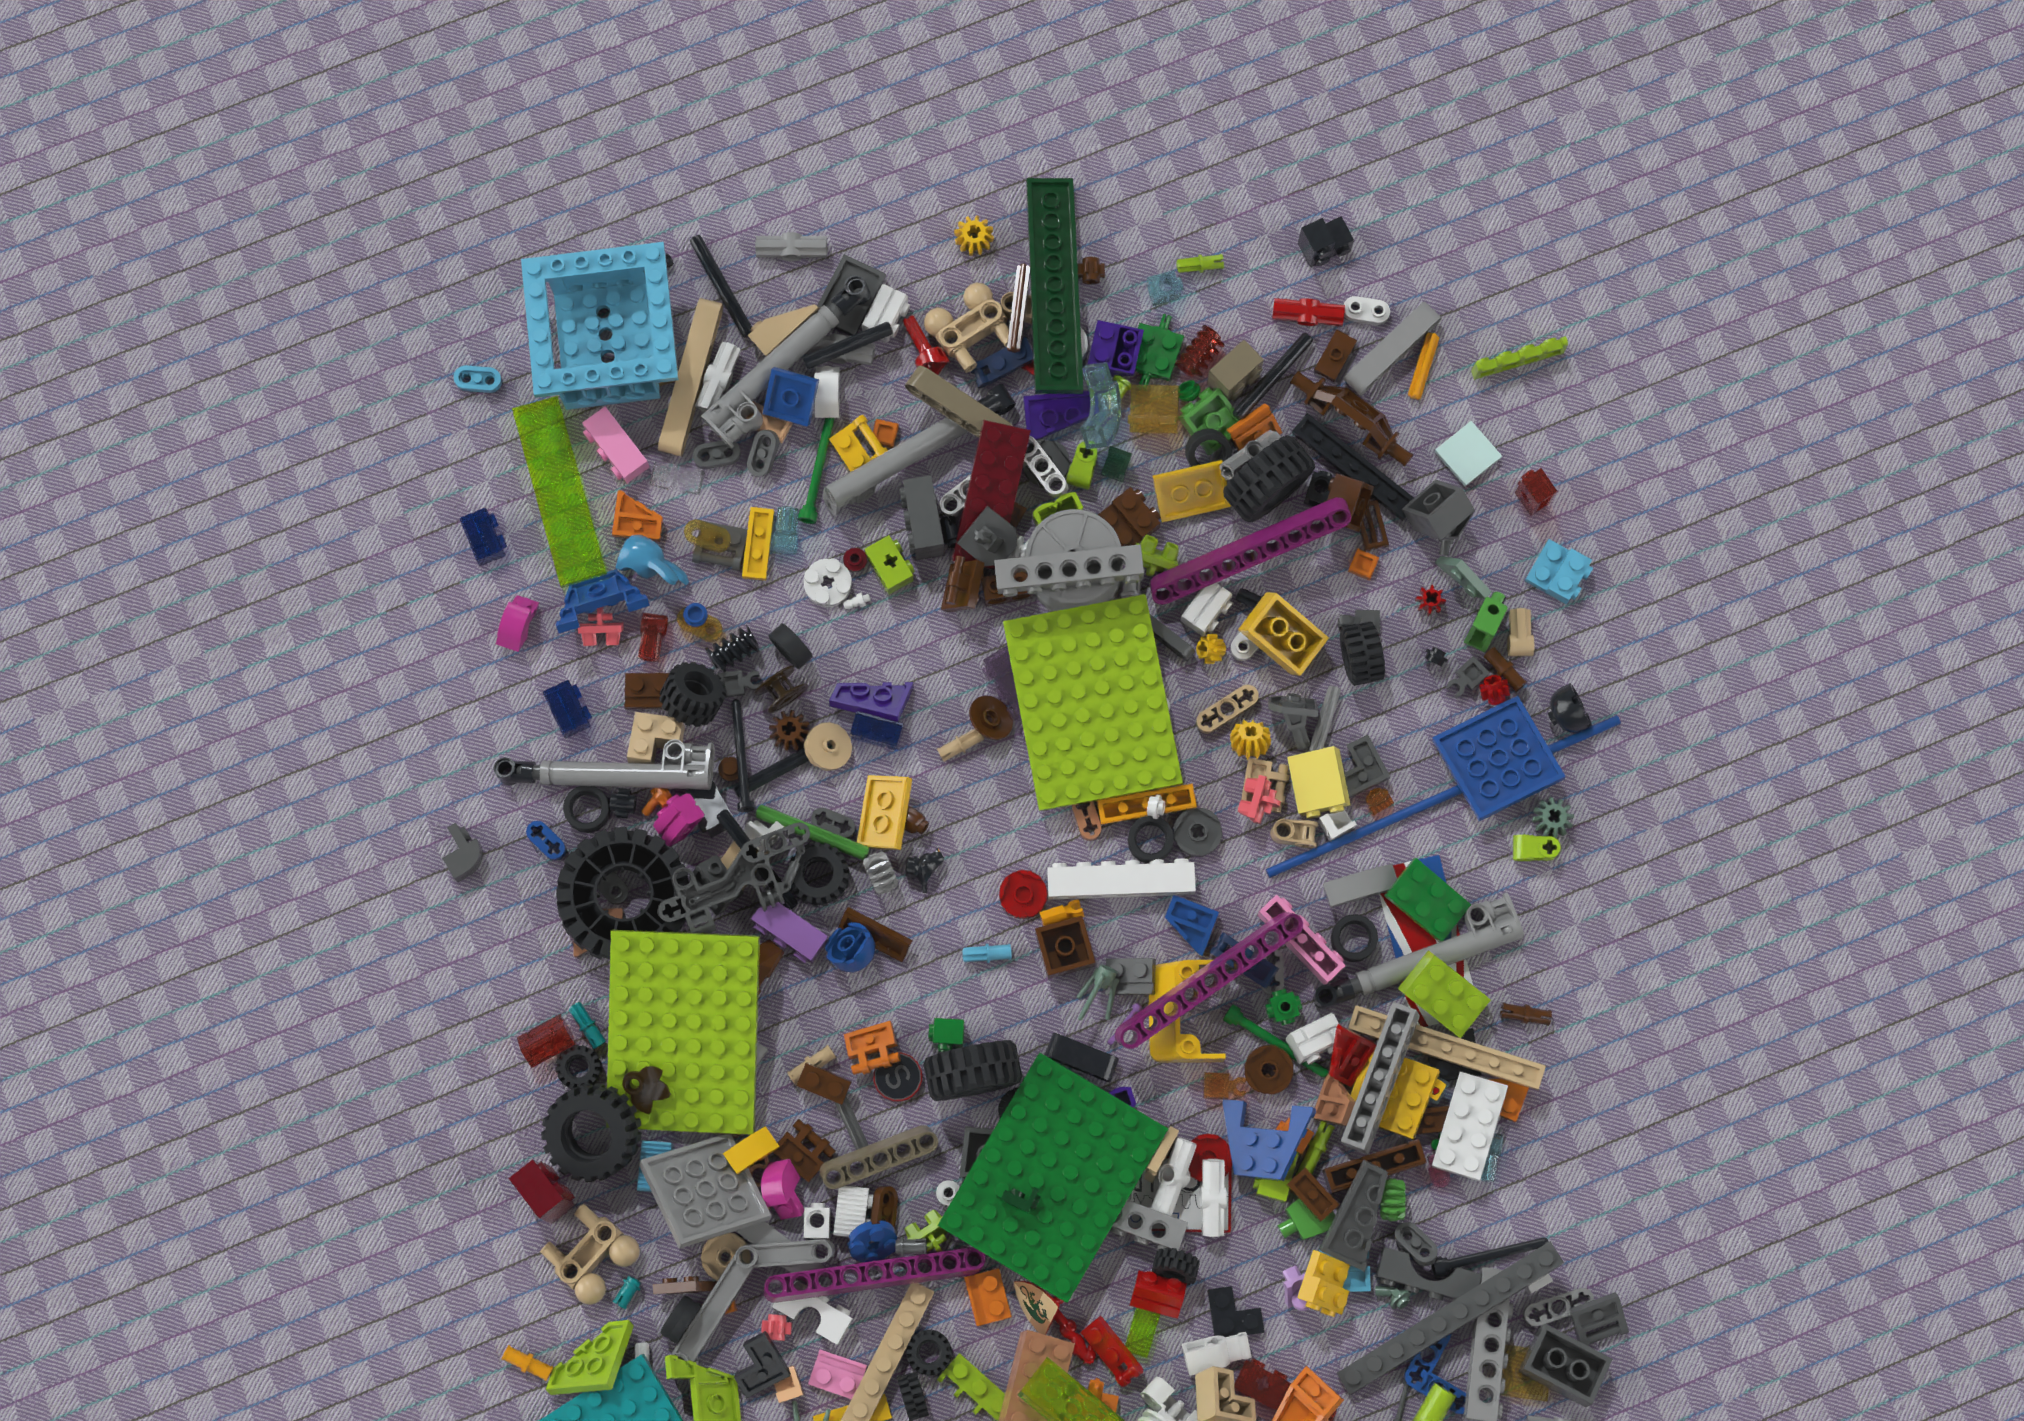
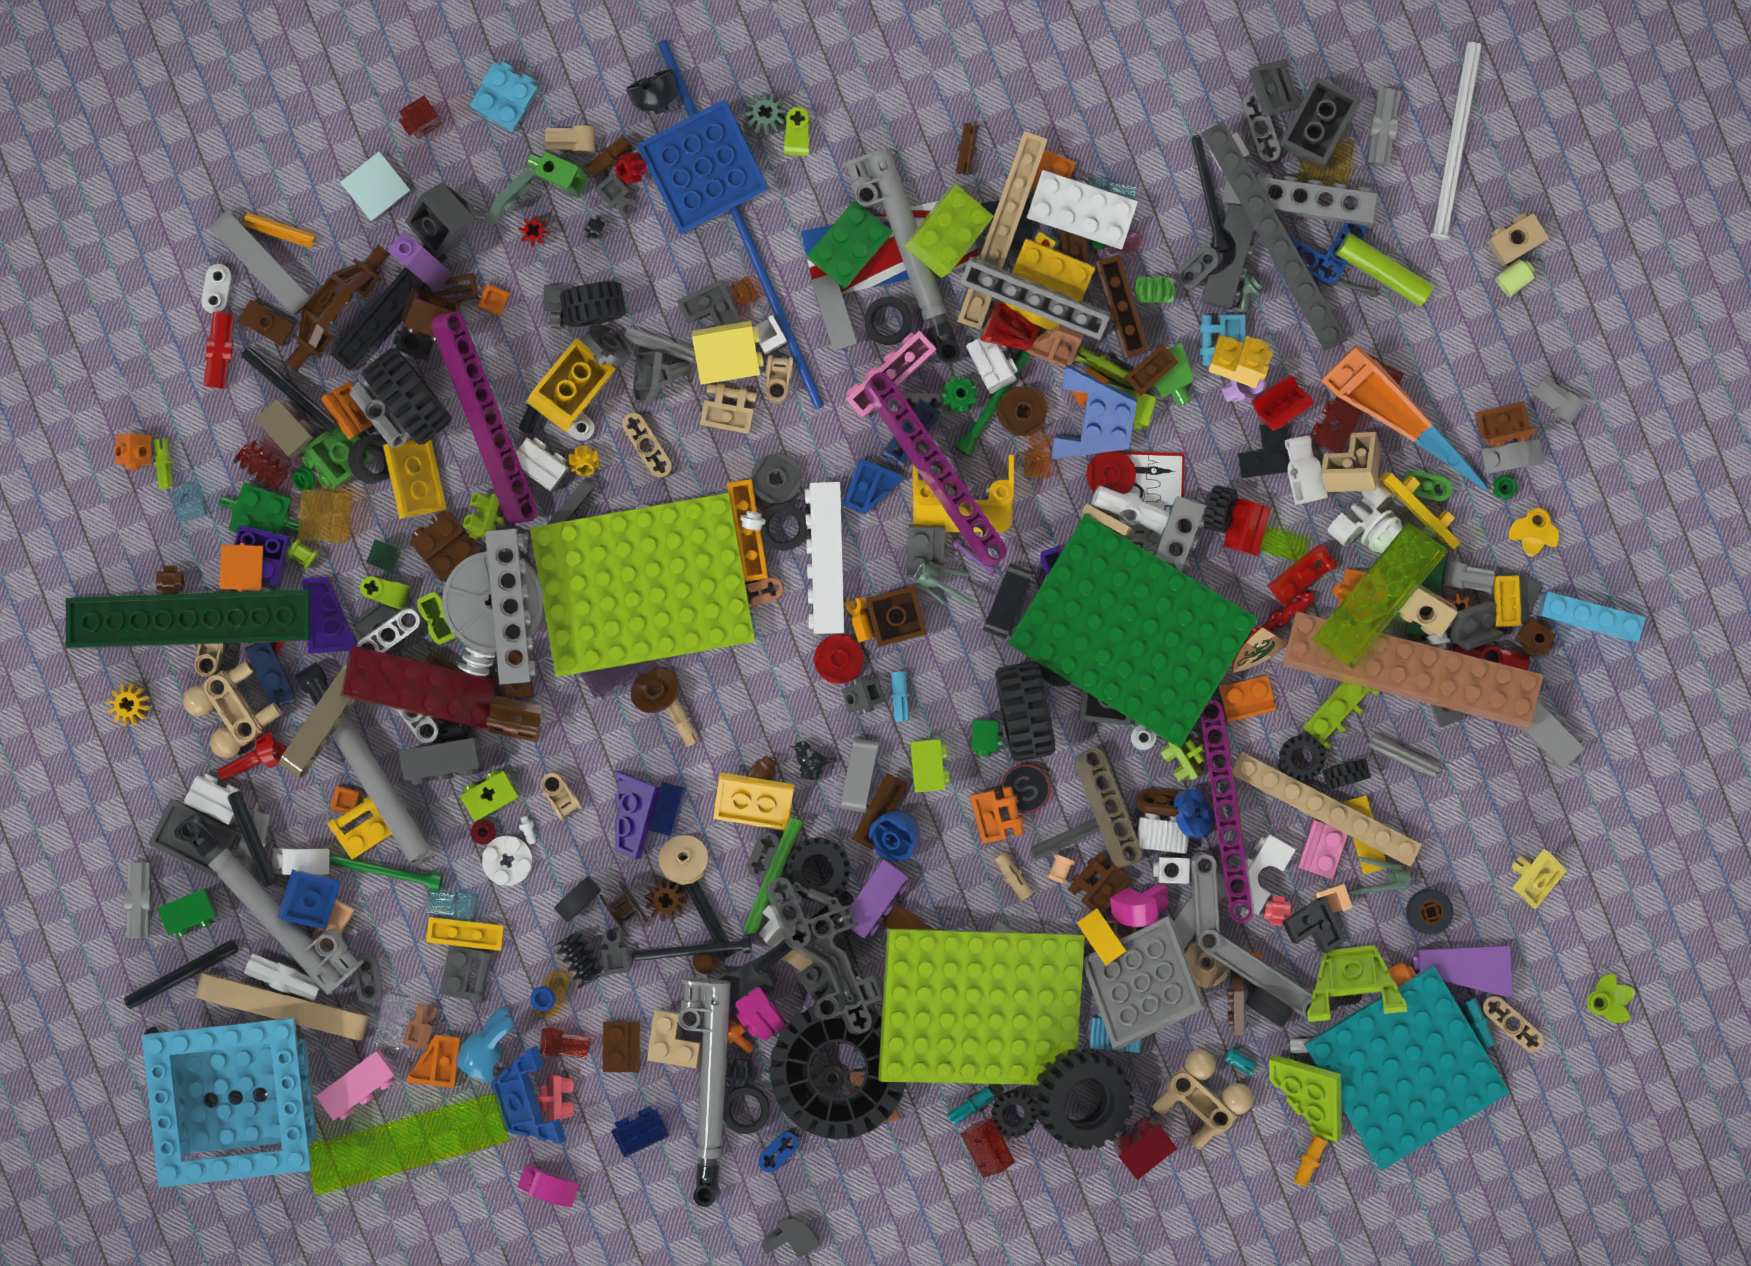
camera: 85 degrees left, 10 degrees up
(478, 380) = (281, 1232): medium azure plate -> none
(483, 536) = (454, 1223): clear blue brick -> none
(649, 1088) = (1040, 1041): dark brown plate -> none
(667, 501) = (418, 1029): none -> nougat plate
(692, 694) = (642, 1007): black tyre -> none
(708, 535) = (458, 986): clear yellow plate -> none
(763, 452) = (365, 929): dark grey plate -> none
(774, 330) = (234, 915): tan slope -> none
(778, 288) = (188, 912): none -> green brick
(818, 1111) = (1060, 869): none -> light nougat bush
(824, 1083) = (1033, 863): reddish brown plate -> none
(880, 872) = (817, 805): light grey gear -> none
(888, 630) = (560, 796): none -> tan piece
(910, 914) = (859, 775): none -> light grey beam
(911, 1246) = (1199, 774): dark grey pin -> none
(919, 977) = (928, 765): none -> lime brick
(987, 916) = (863, 695): none -> dark grey brick
(989, 538) = (467, 690): dark grey piece -> none
(1017, 1199) = (1157, 668): dark green bracket -> none
(1018, 308) = (214, 657): axle -> none
(1103, 331) = (241, 567): none -> orange piece
(1105, 407) = (330, 567): clear light blue arch -> none
(1211, 235) = (132, 450): none -> orange brick
(1213, 1197) = (1151, 470): white piece -> none
(1250, 739) = (680, 422): yellow gear -> none
(1262, 800) = (747, 411): coral hips -> none
(1283, 1328) = (1281, 403): none -> red bracket
(1322, 667) = (606, 346): none -> dark grey plate
(1324, 240) = (140, 330): black brick -> none
(1354, 1223) = (1183, 330): dark grey wing -> none
(1398, 487) = (419, 261): none -> medium lavender slope
(1524, 356) = (269, 120): lime hinge -> none

